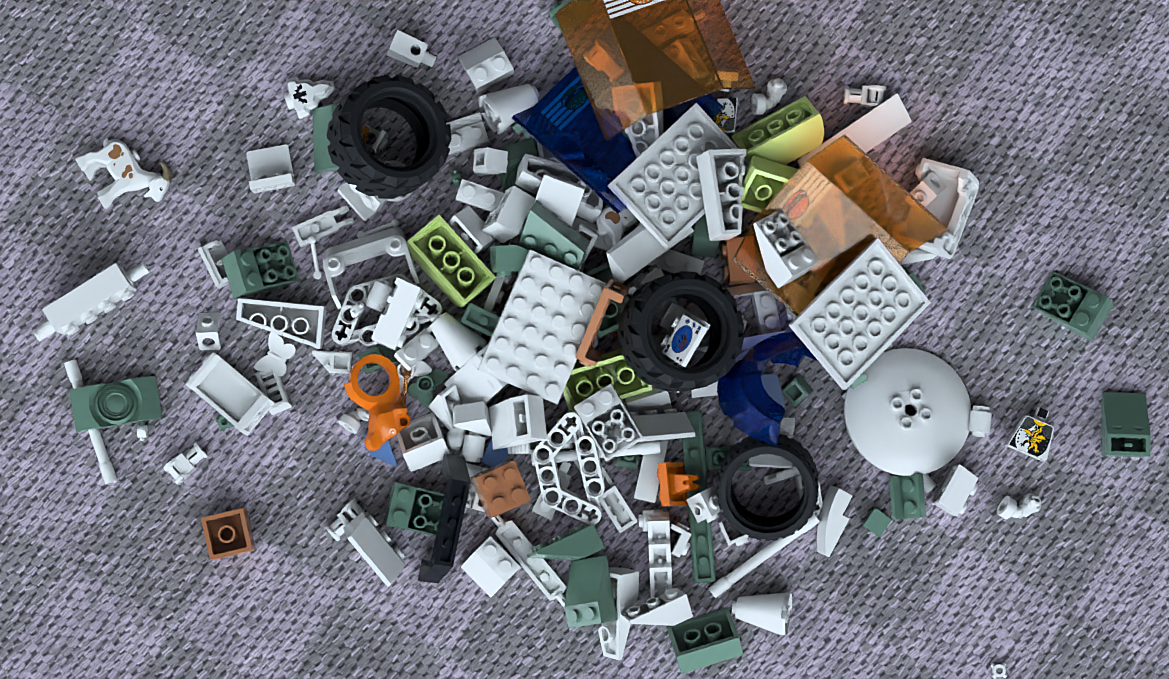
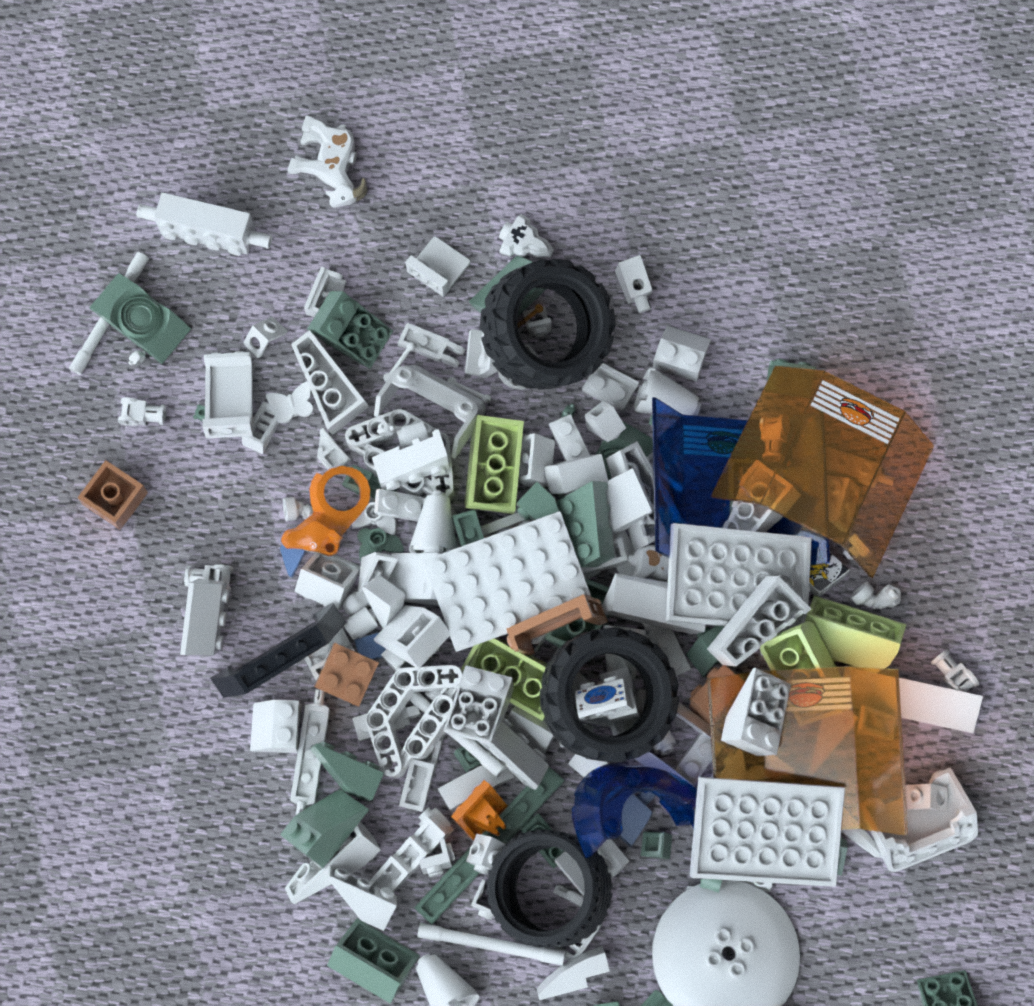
camera: 50 degrees right, 10 degrees down
(406, 374) = (369, 516): clear orange hinge -> none
(413, 509) = (265, 620): sand green slope -> none

